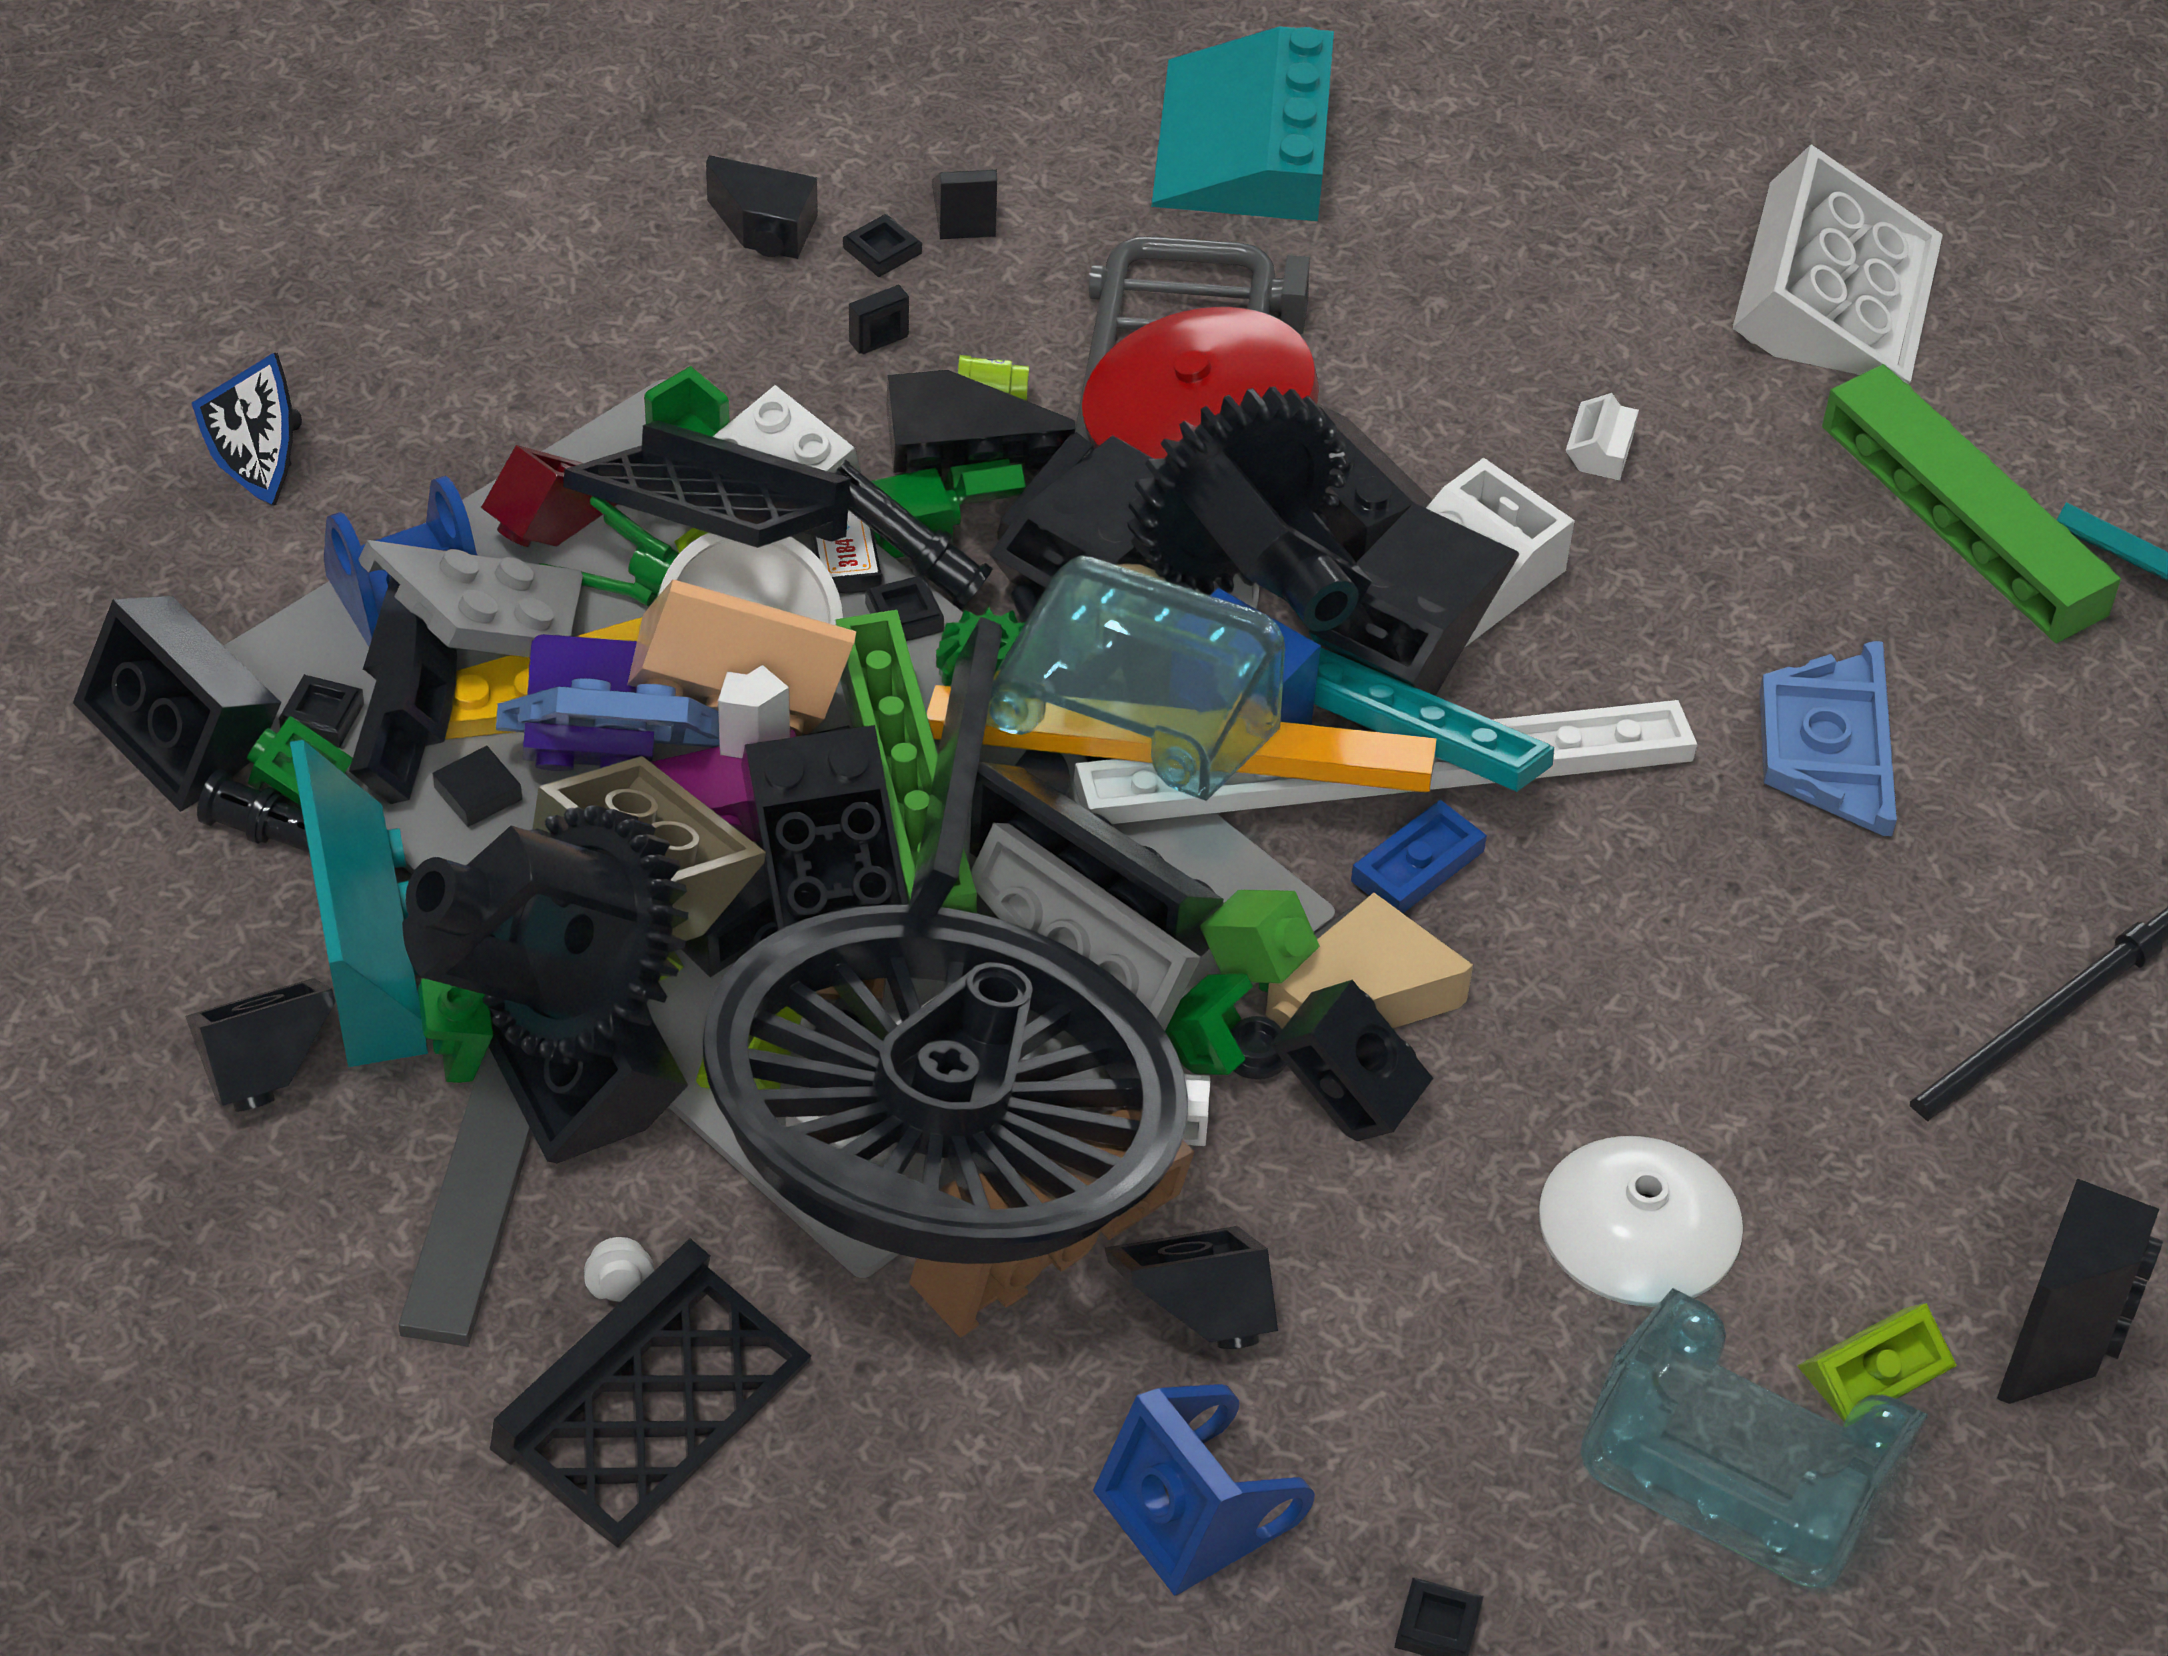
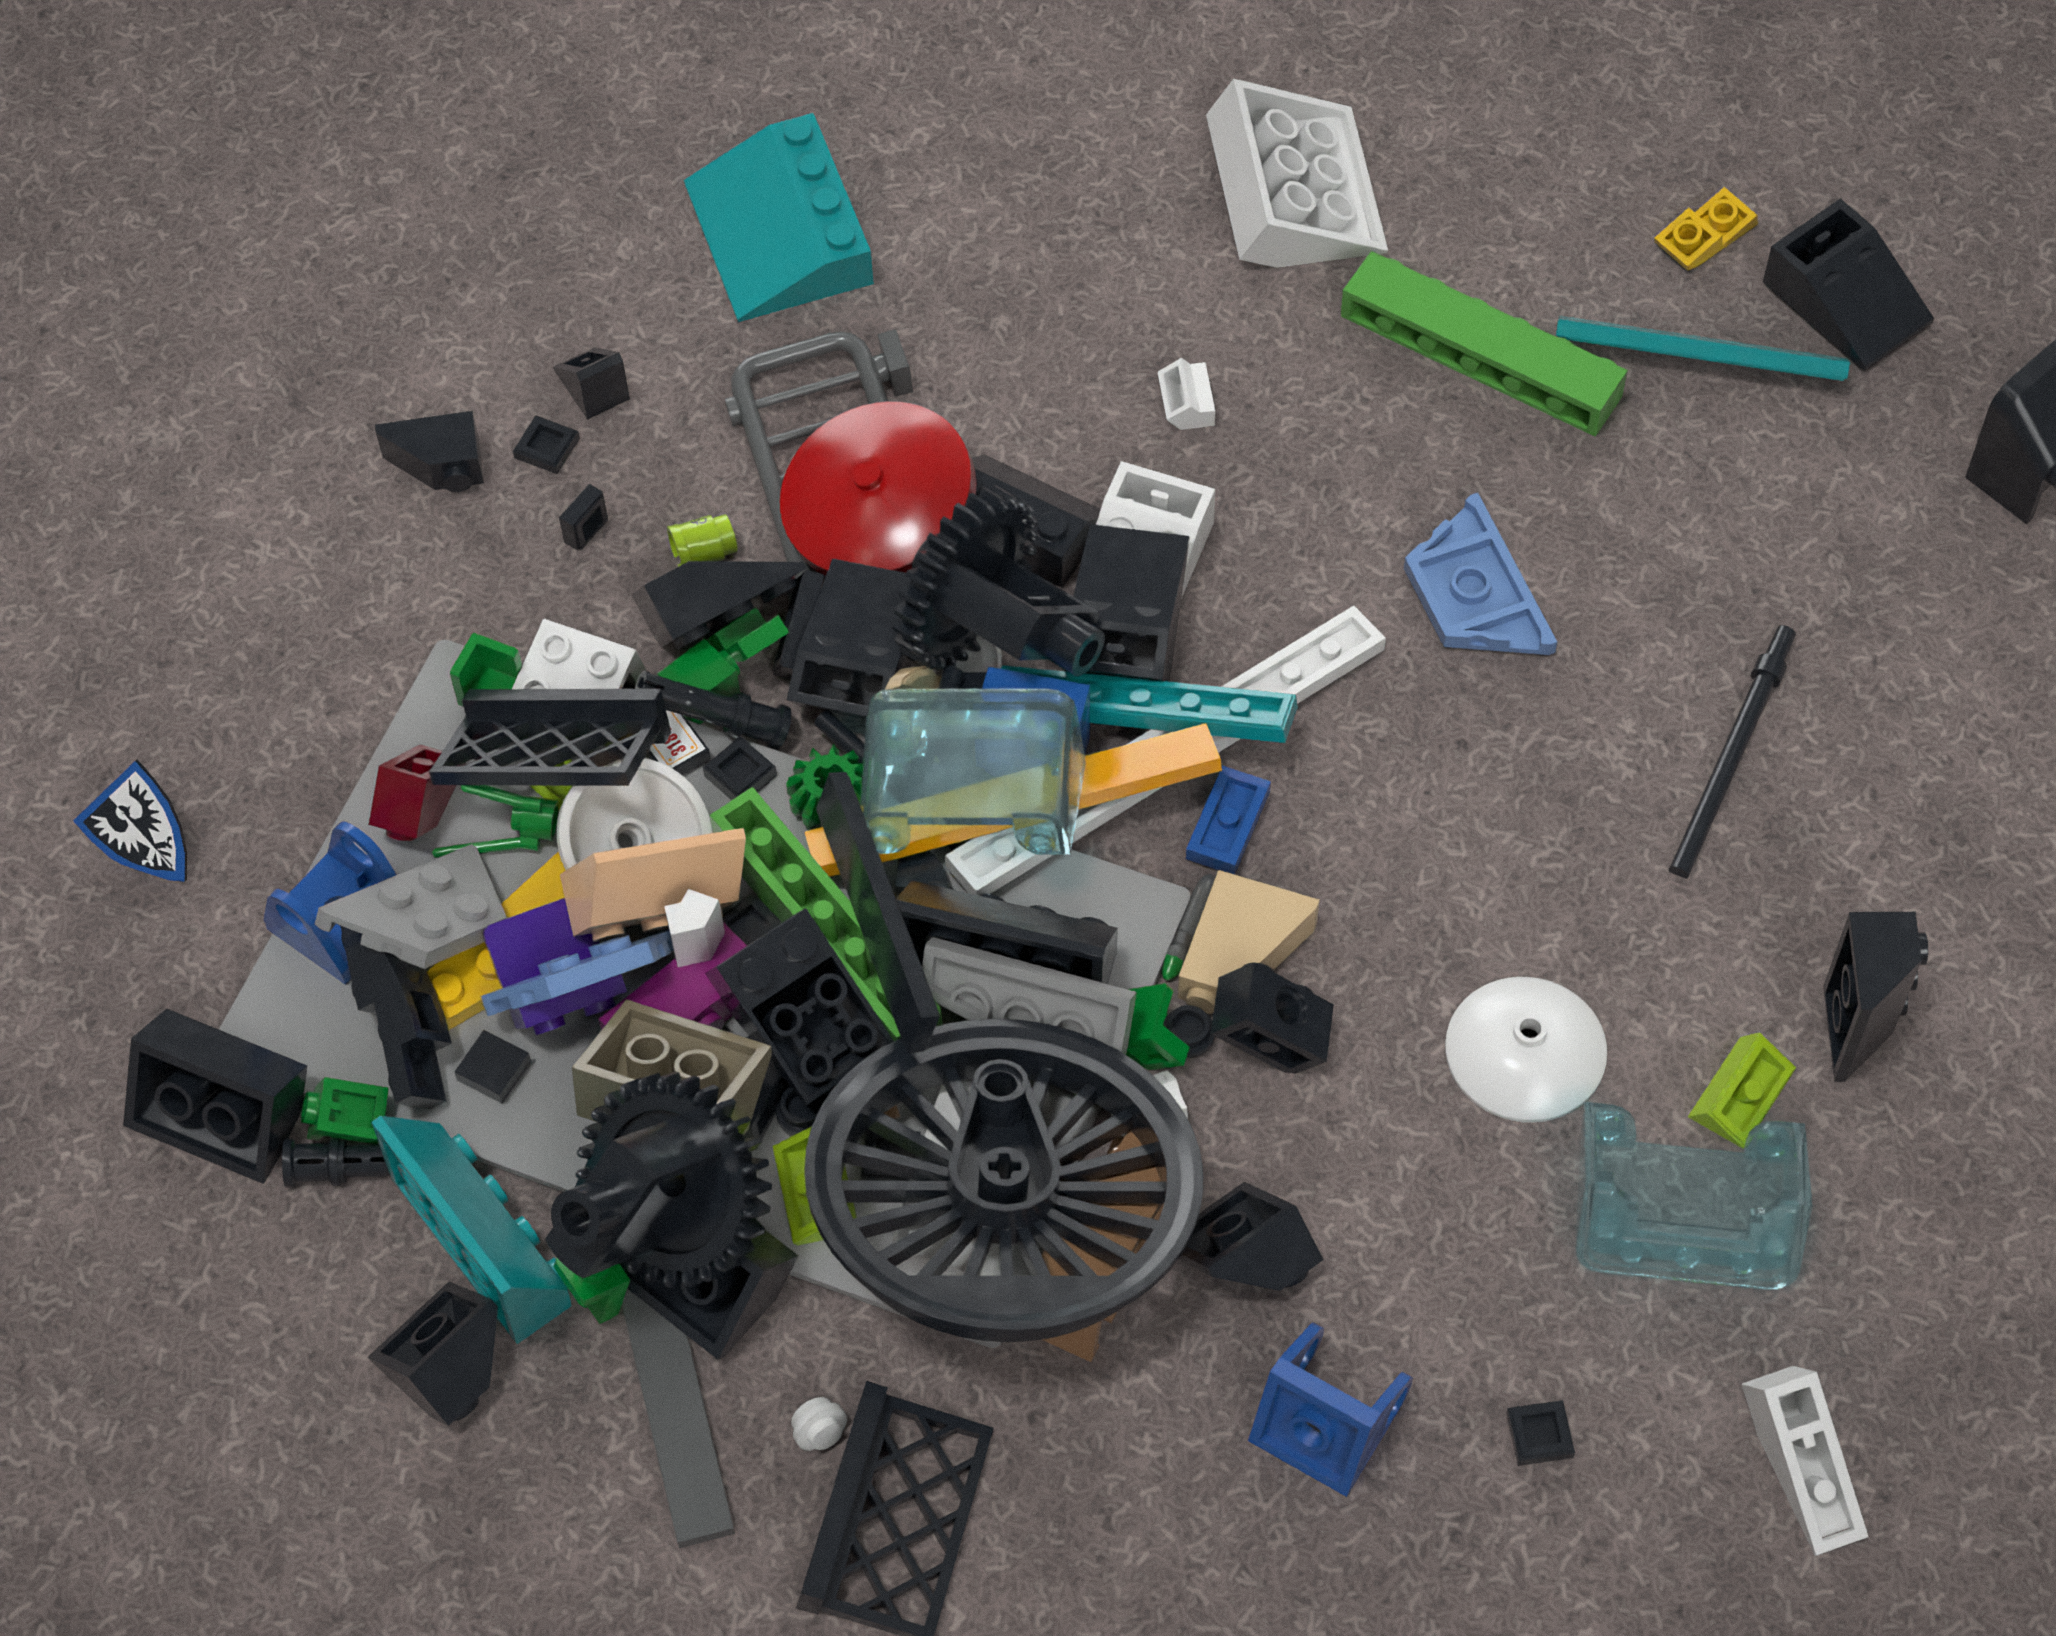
camera: 20 degrees left, 10 degrees up
(324, 707) = (333, 1052): black tile -> none
(1260, 935) = (1157, 945): bright green brick -> none

